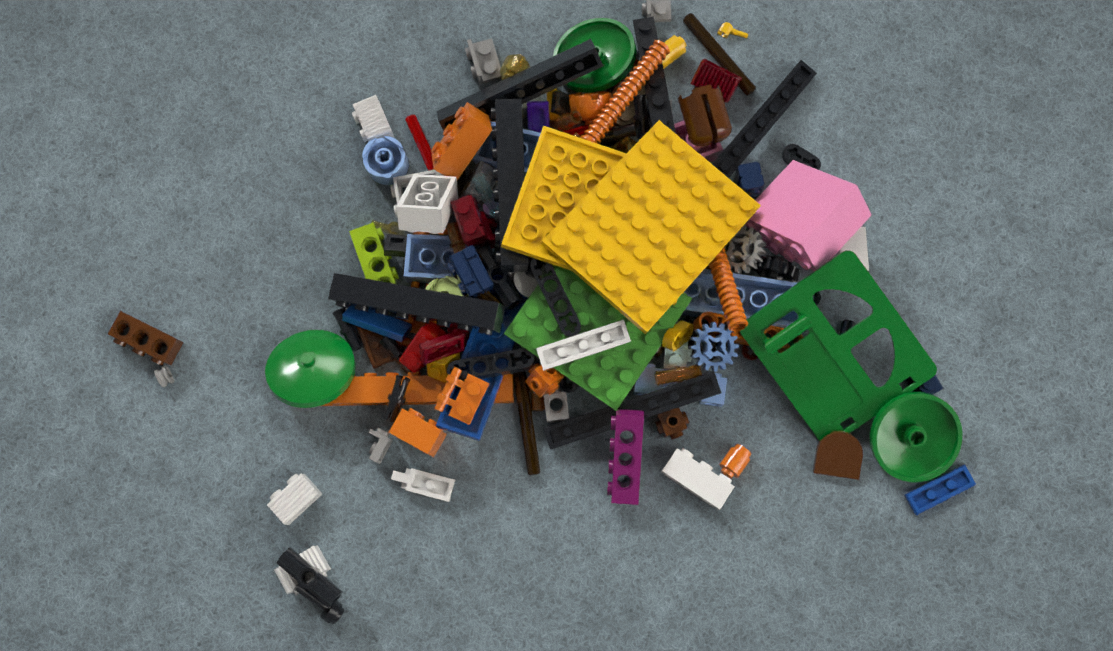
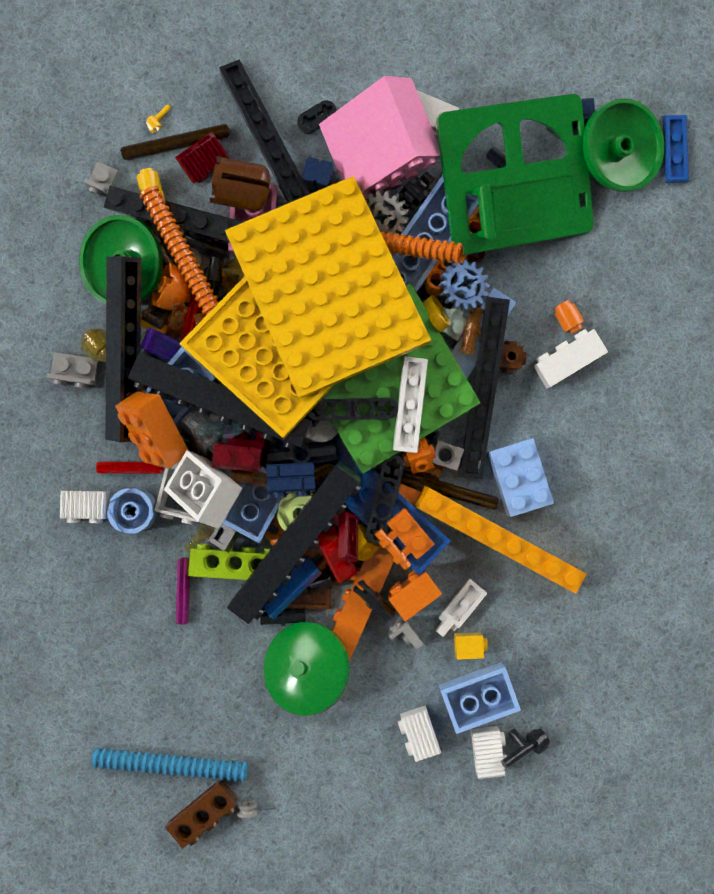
camera: 75 degrees left, 10 degrees up
(178, 295) = (168, 764): none -> dark azure piece
(321, 587) = (516, 742): black piece -> none
(332, 235) = (183, 590): none -> magenta axle
(349, 536) = (479, 697): none -> light blue brick
(393, 507) = (470, 645): none -> yellow brick
(501, 489) = (500, 539): none -> light orange brick
(567, 482) = (520, 477): none -> light blue brick
(627, 491) = (552, 426): magenta brick -> none
(839, 456) = (607, 222): reddish brown tile -> none

